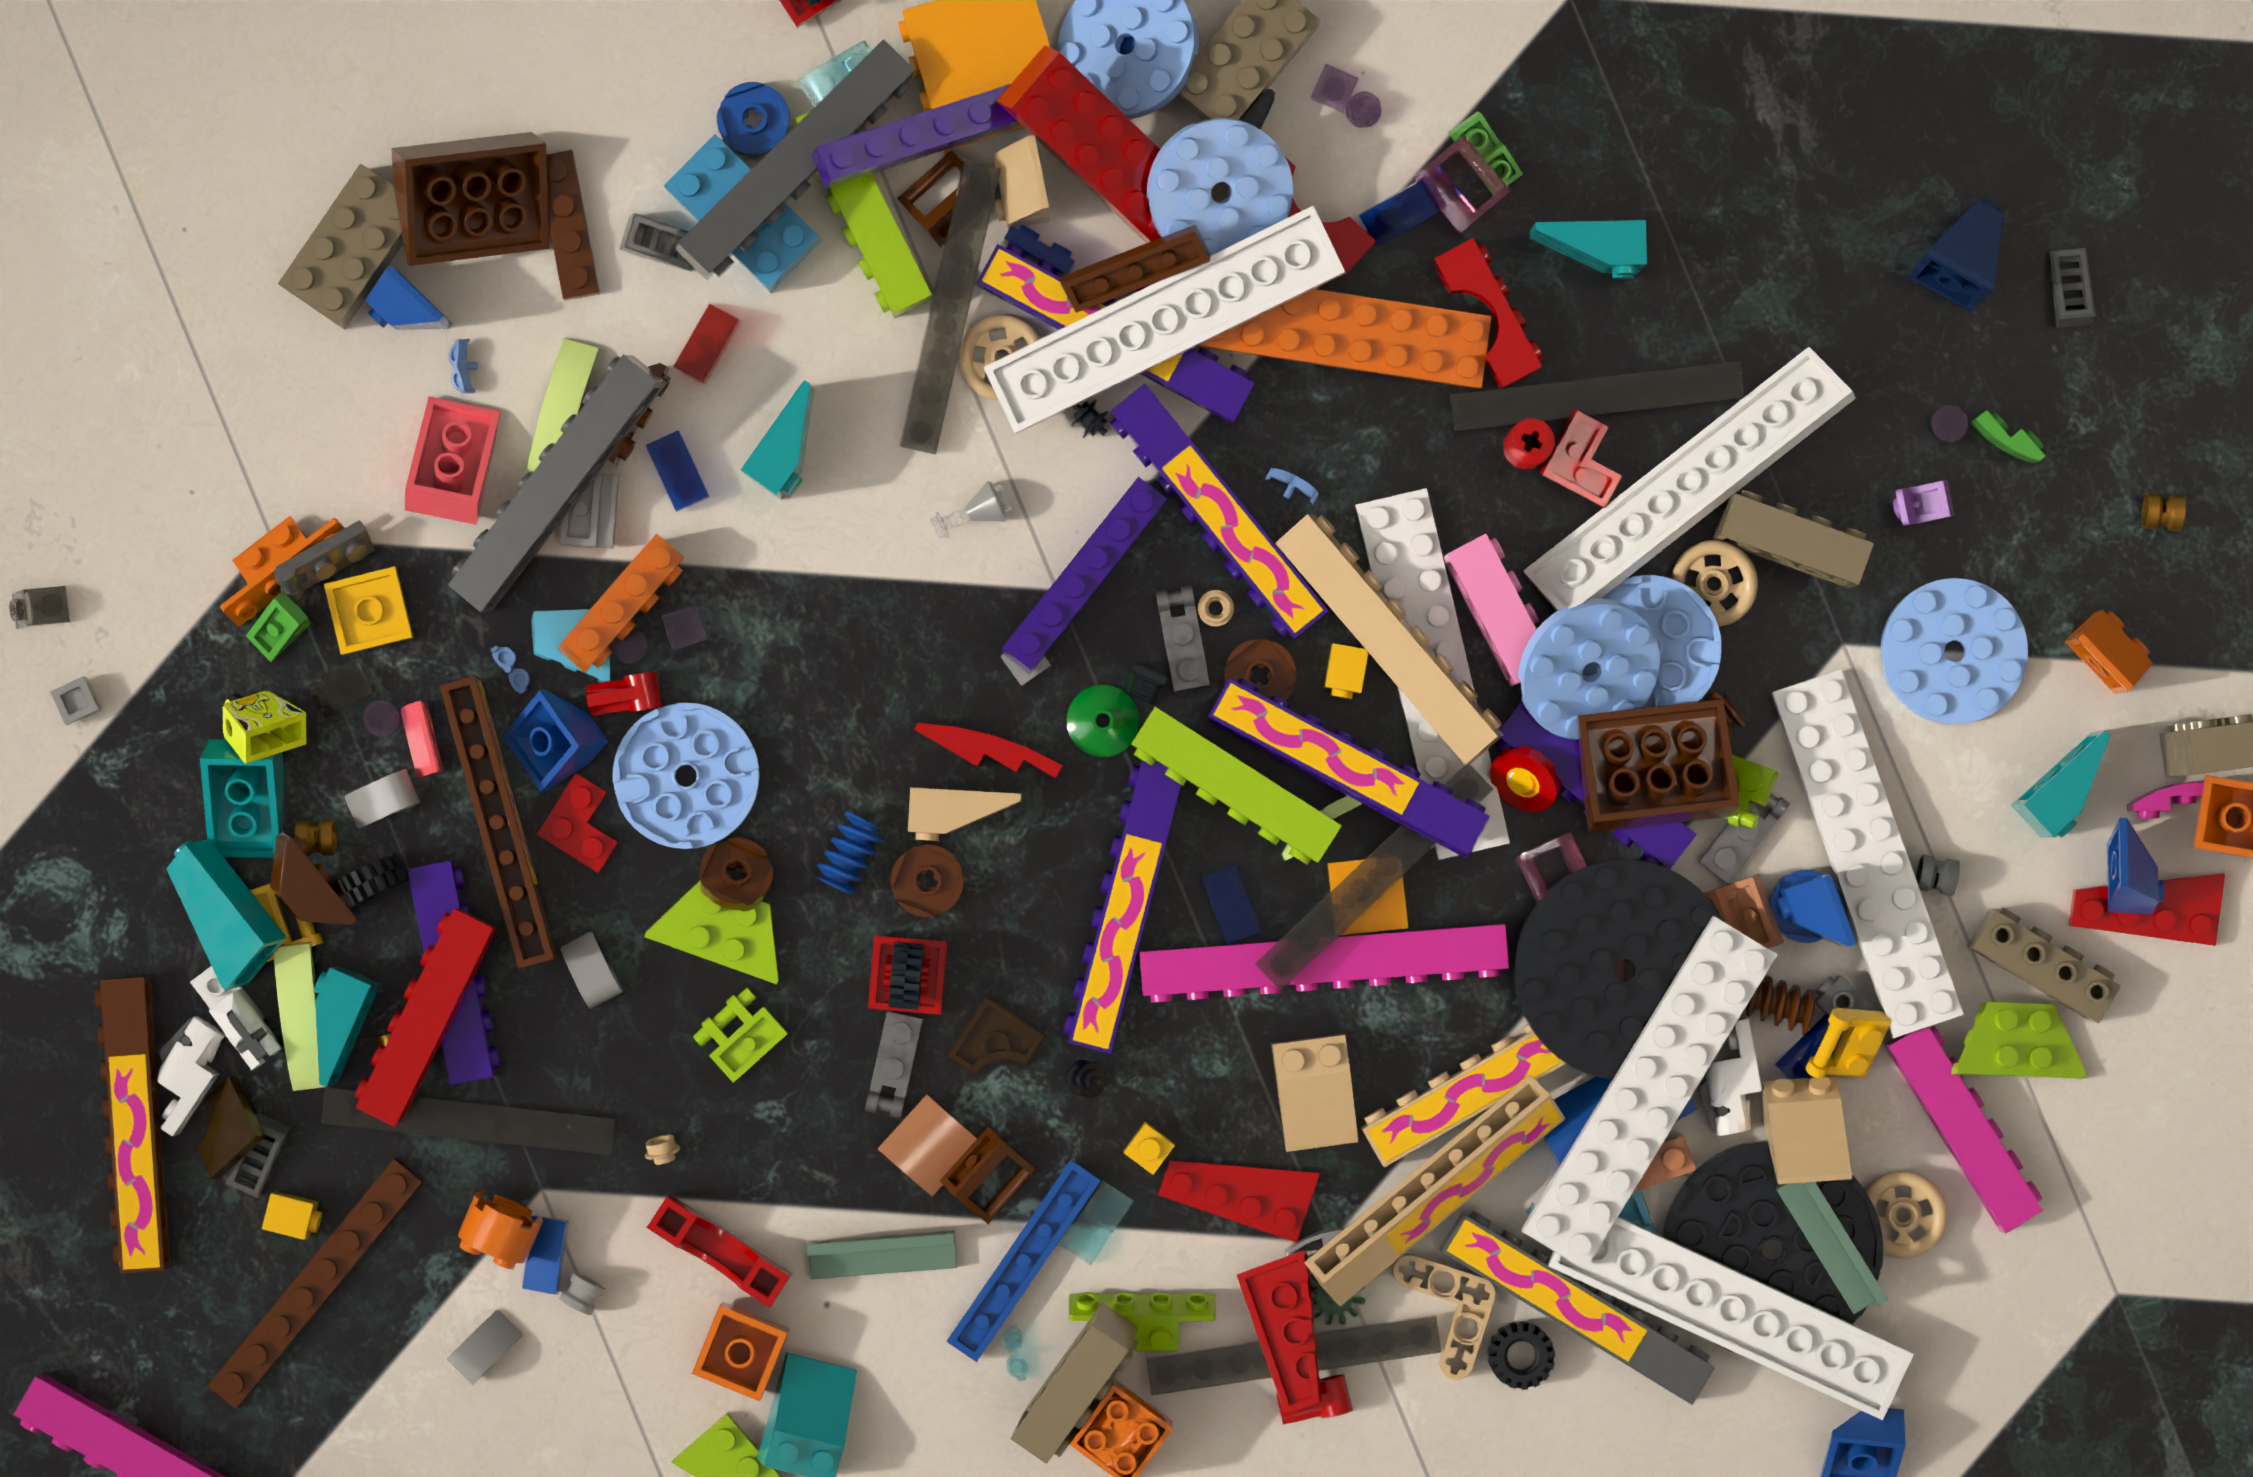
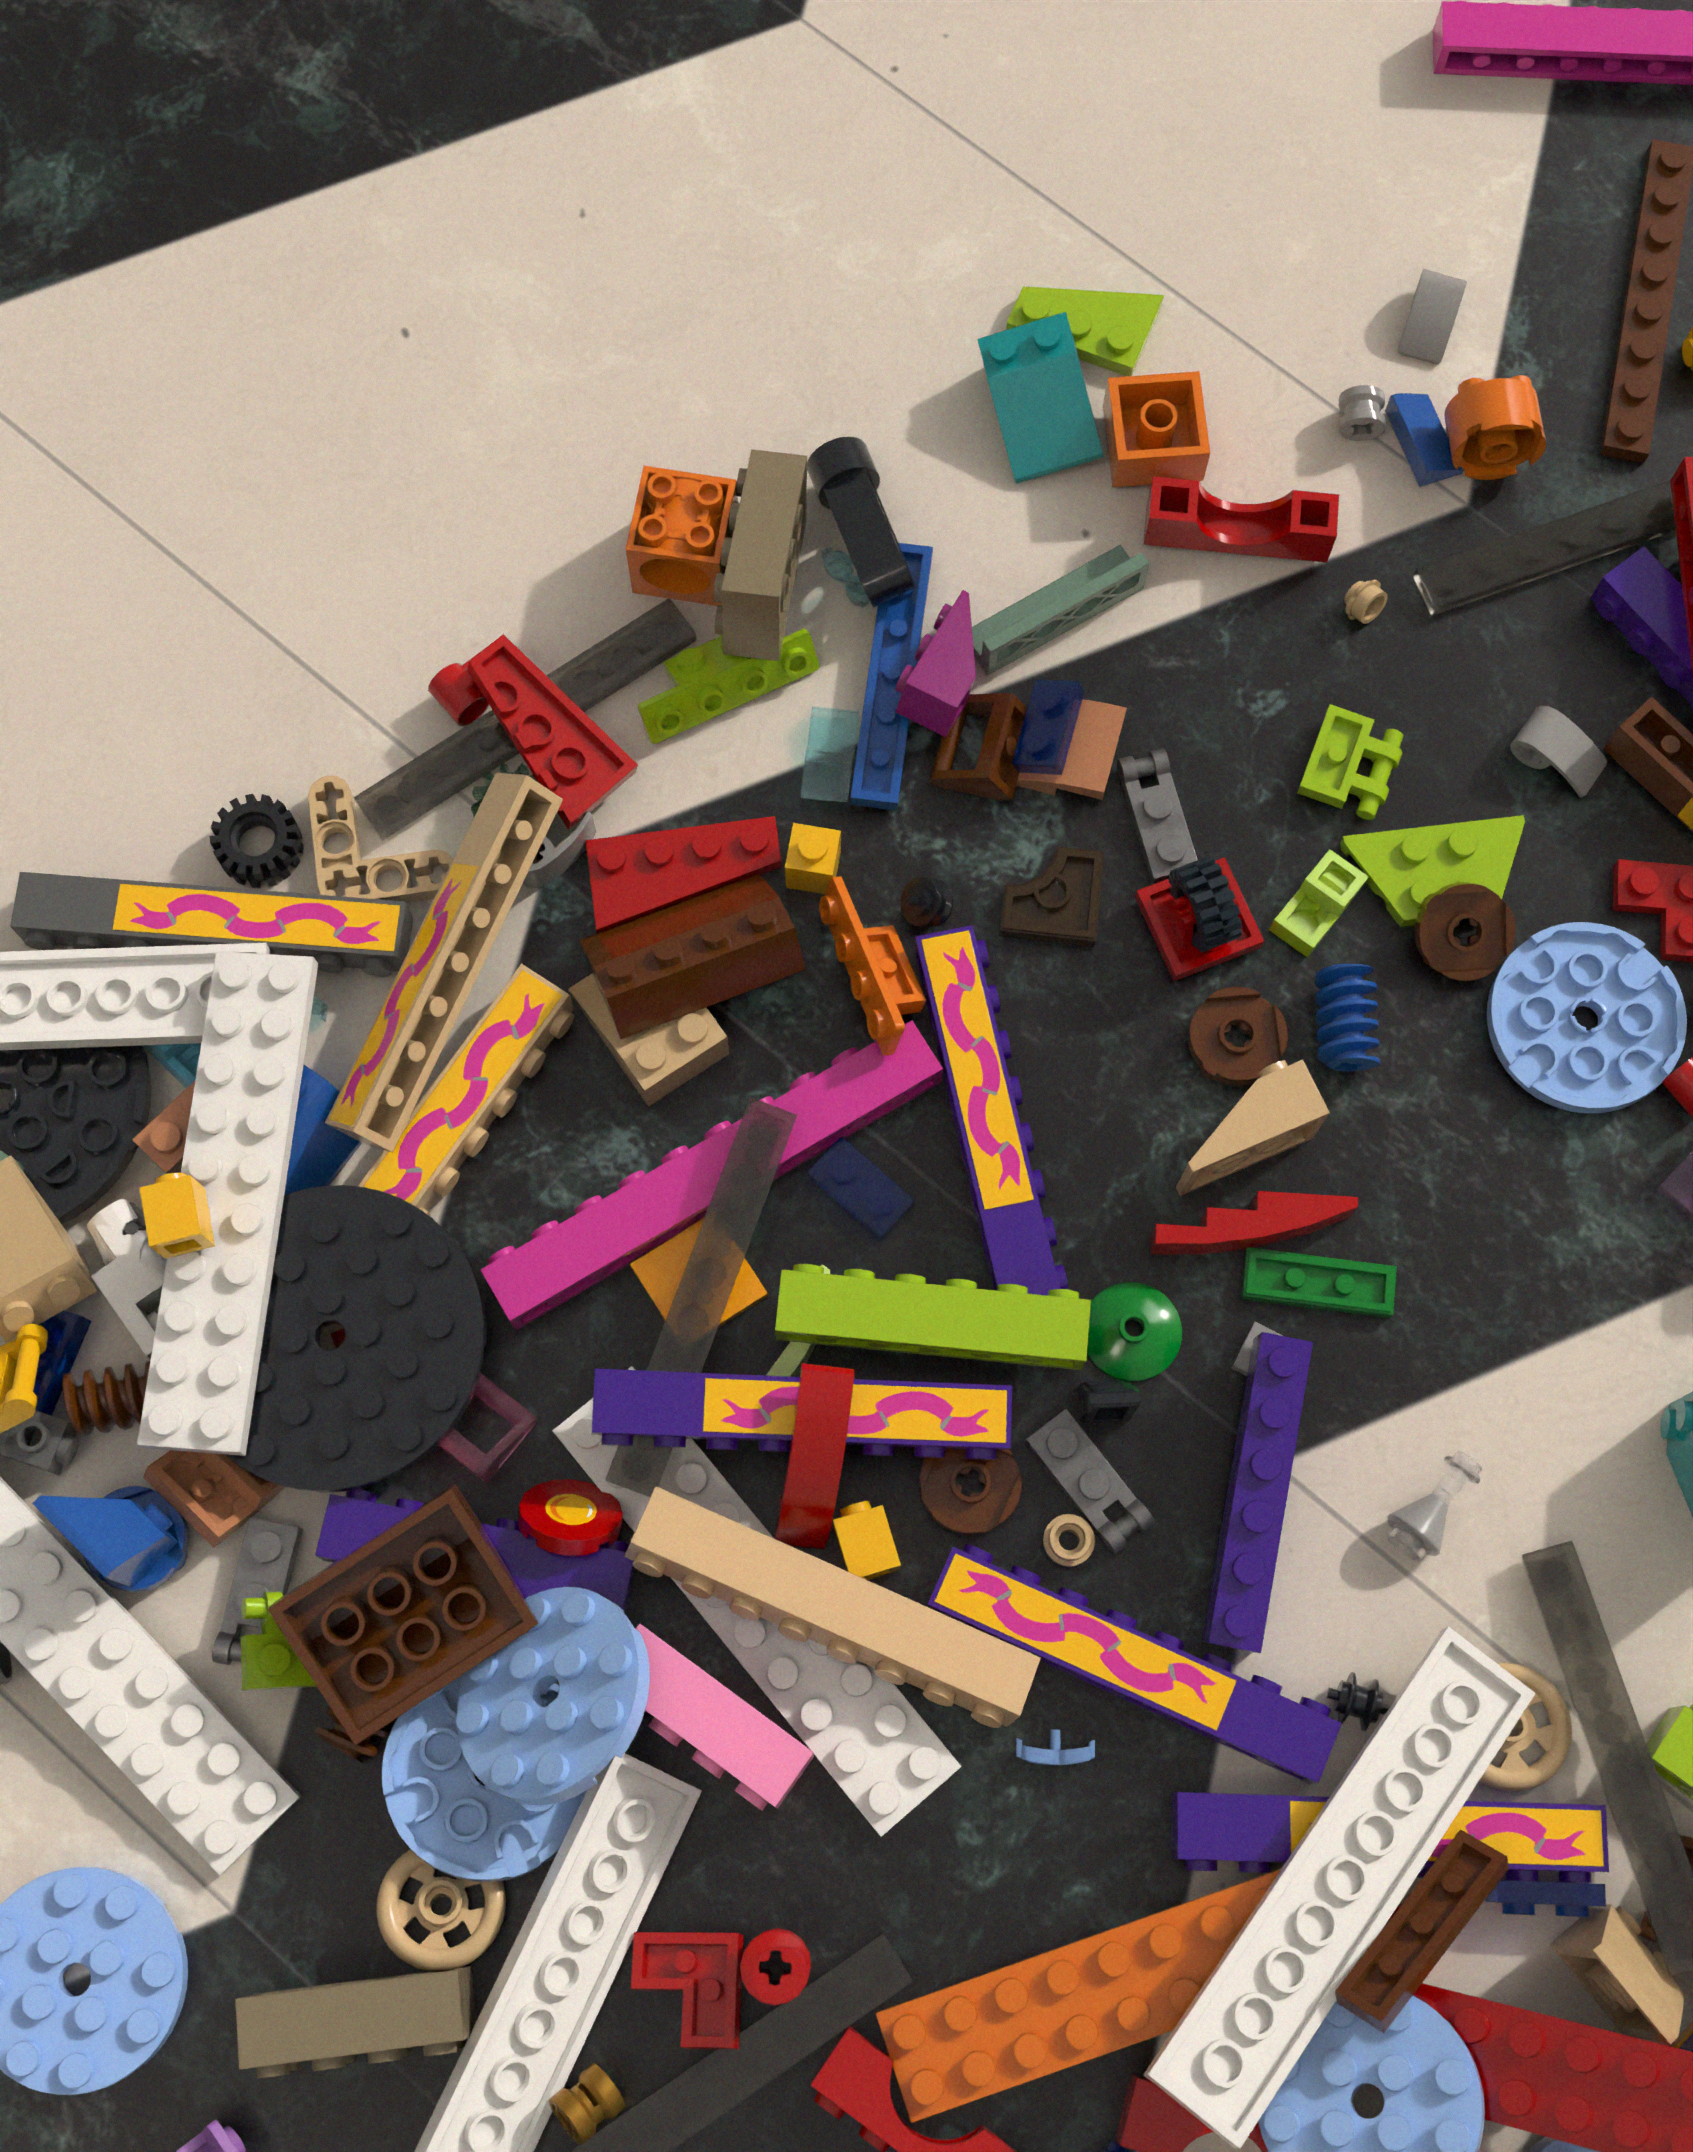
camera: 160 degrees right, 15 degrees down
(818, 946) = (1318, 903): none -> lime slope
(938, 1162) = (1048, 727): none -> clear blue plate
(964, 690) = (1318, 1282): none -> green tile
(983, 1419) = (848, 486): none -> black beam
(991, 1233) = (945, 671): none -> magenta slope
(1145, 1046) = (876, 966): none -> orange bracket
(1267, 1118) = (693, 954): none -> reddish brown slope
(1354, 735) = (815, 1456): none -> red slope
(1679, 423) = (587, 2104): none -> pearl gold wheel
(1688, 1088) = (176, 1215): none -> yellow brick

